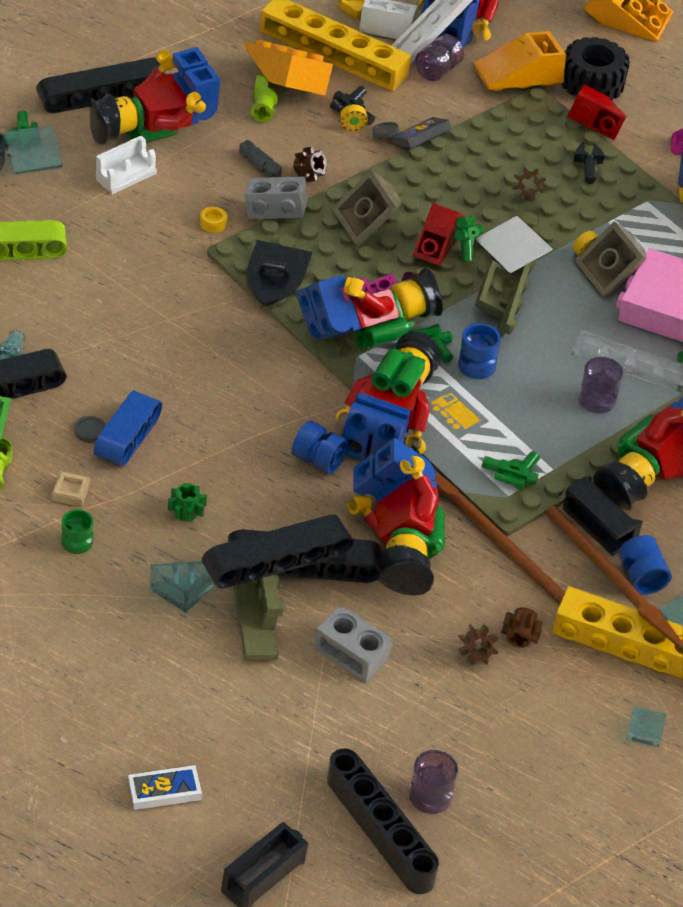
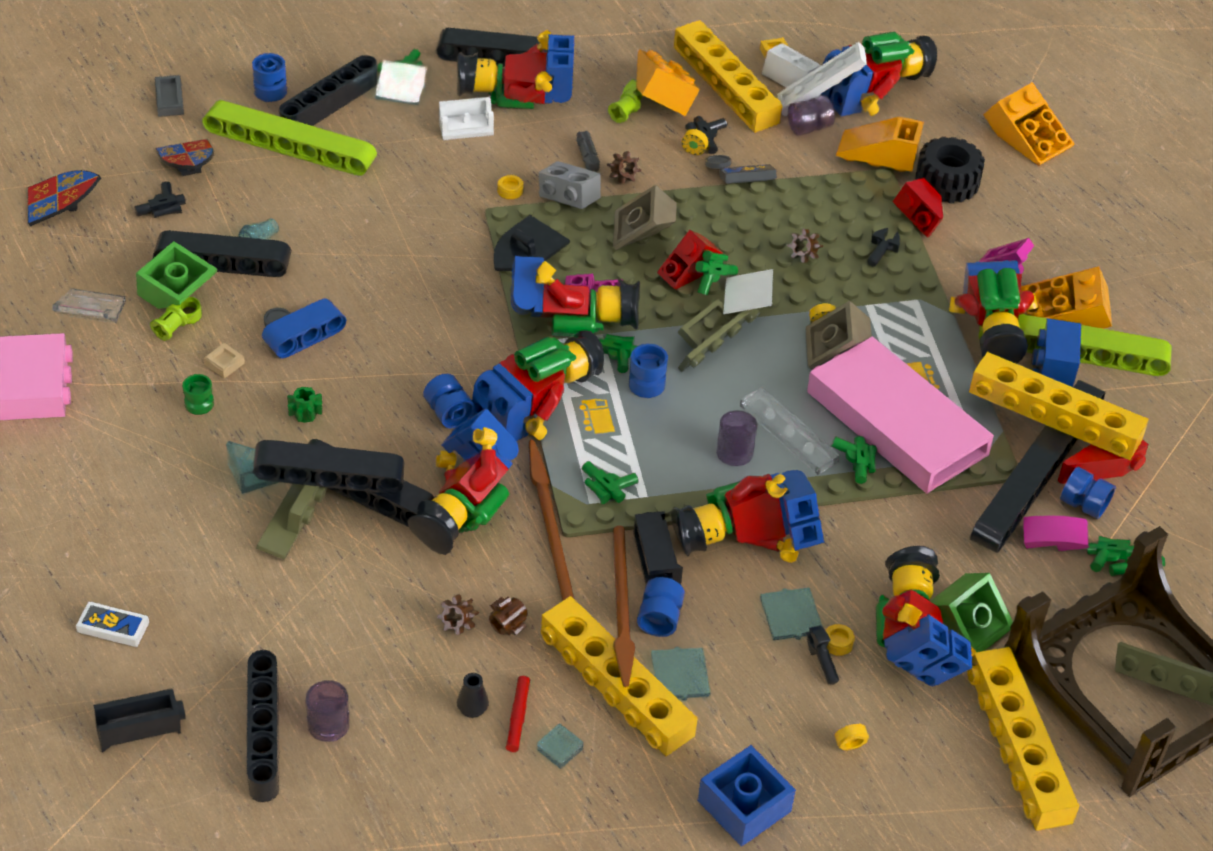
camera: 30 degrees right, 0 degrees up
(353, 643) = (353, 571): light grey brick -> none
(546, 715) = (472, 697): none -> black cone
(589, 713) = (518, 714): none -> red piece

